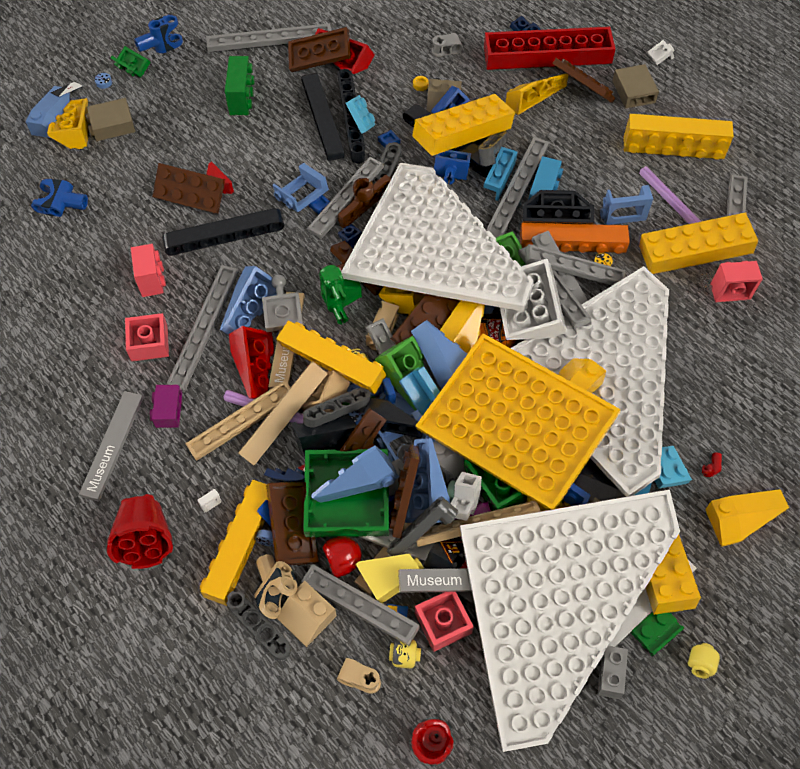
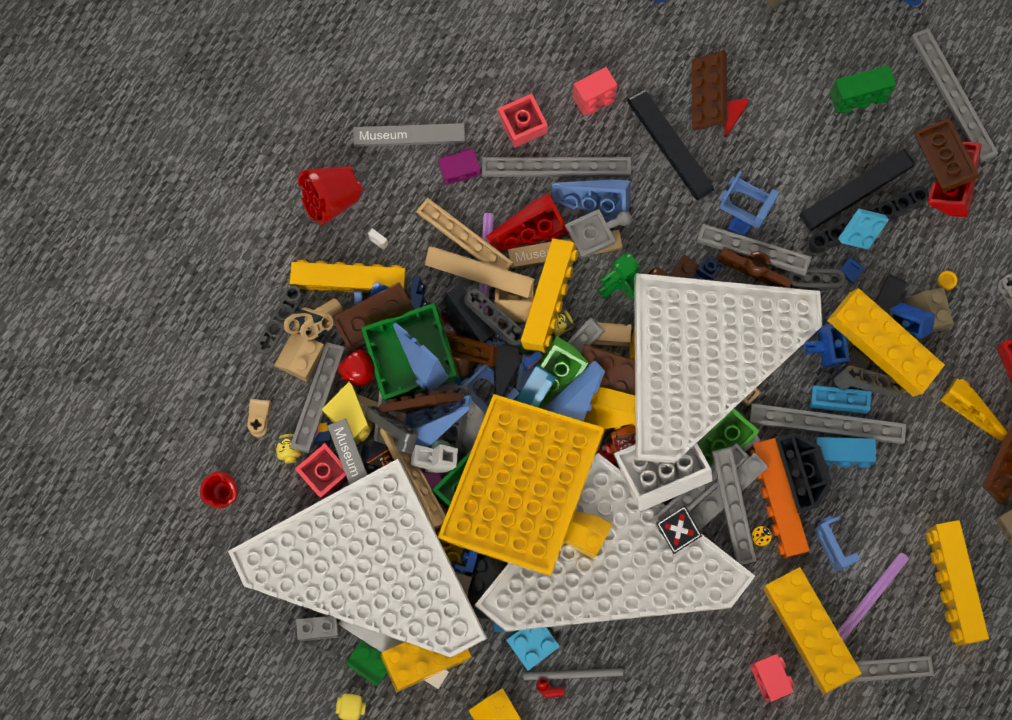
camera: 75 degrees right, 15 degrees up
(590, 308) = (679, 529): none -> black sticker
(700, 443) = (573, 674): none -> light grey piece

